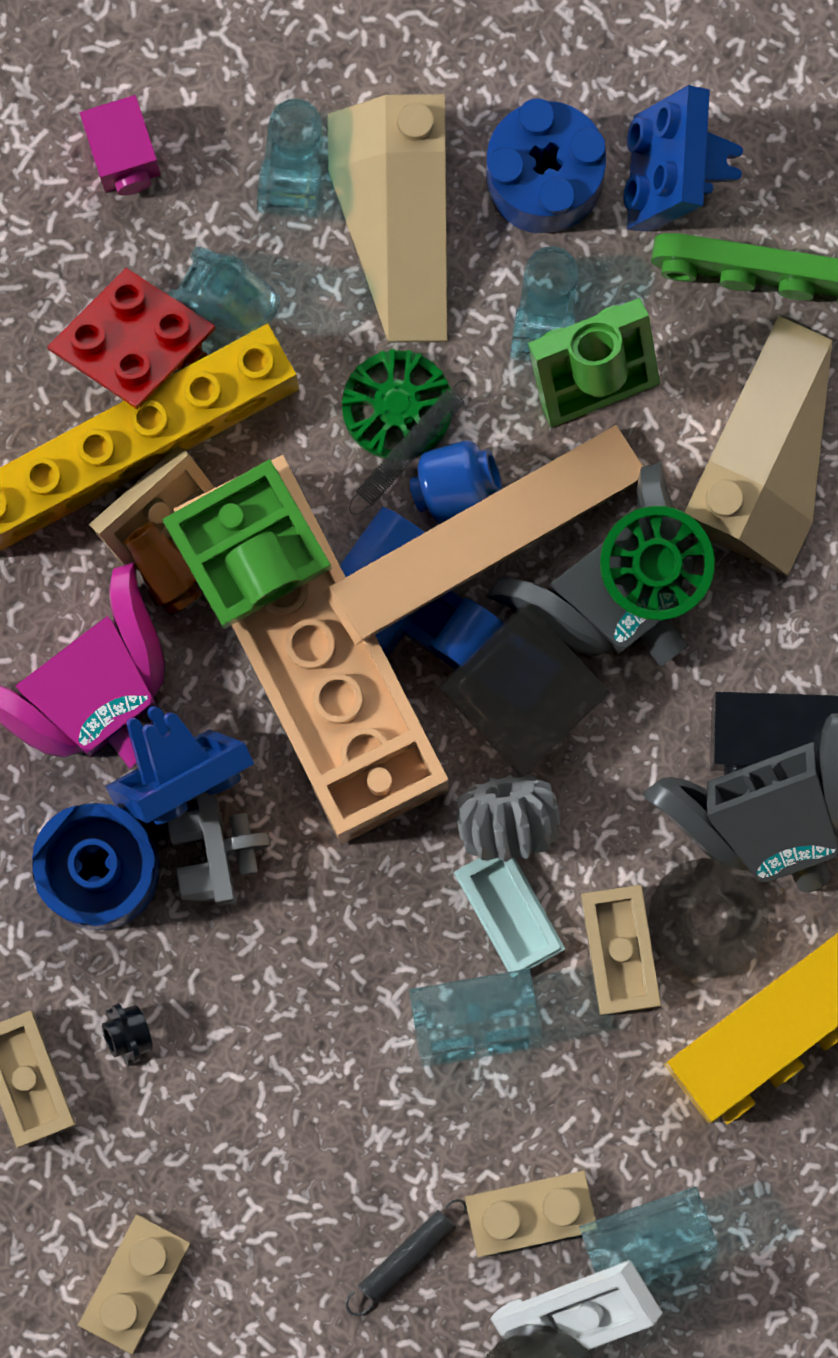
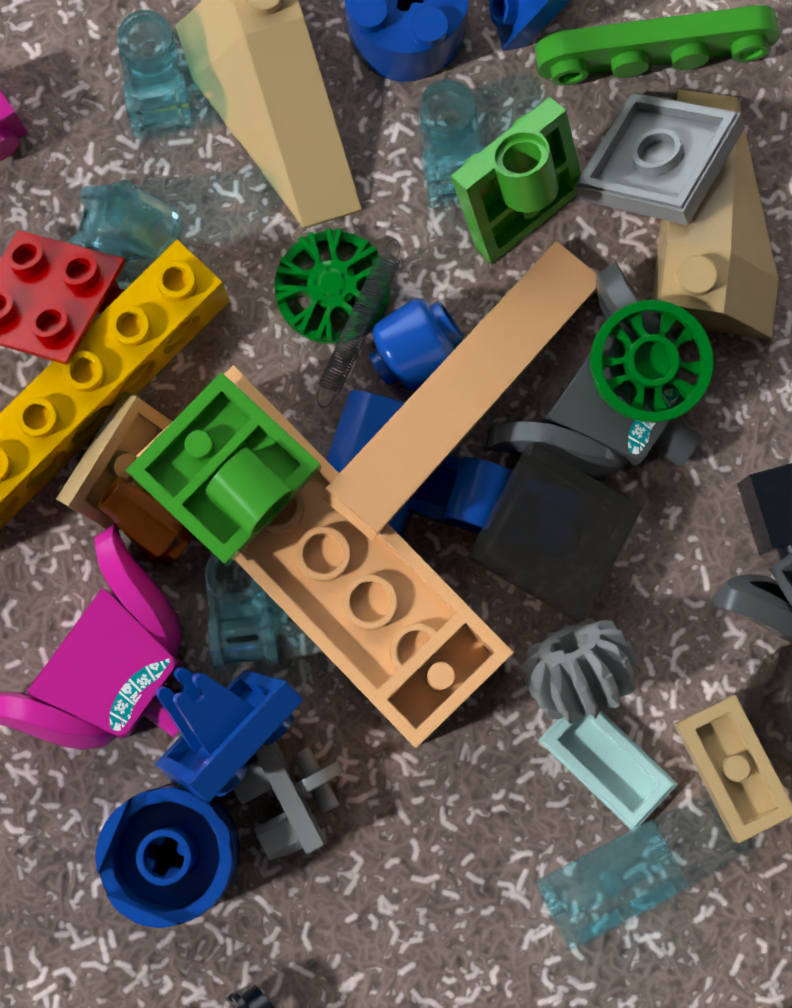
camera: 20 degrees left, 0 degrees up
(221, 680) = (239, 616): none -> clear light blue piece
(733, 377) = (660, 157): none -> light grey tile

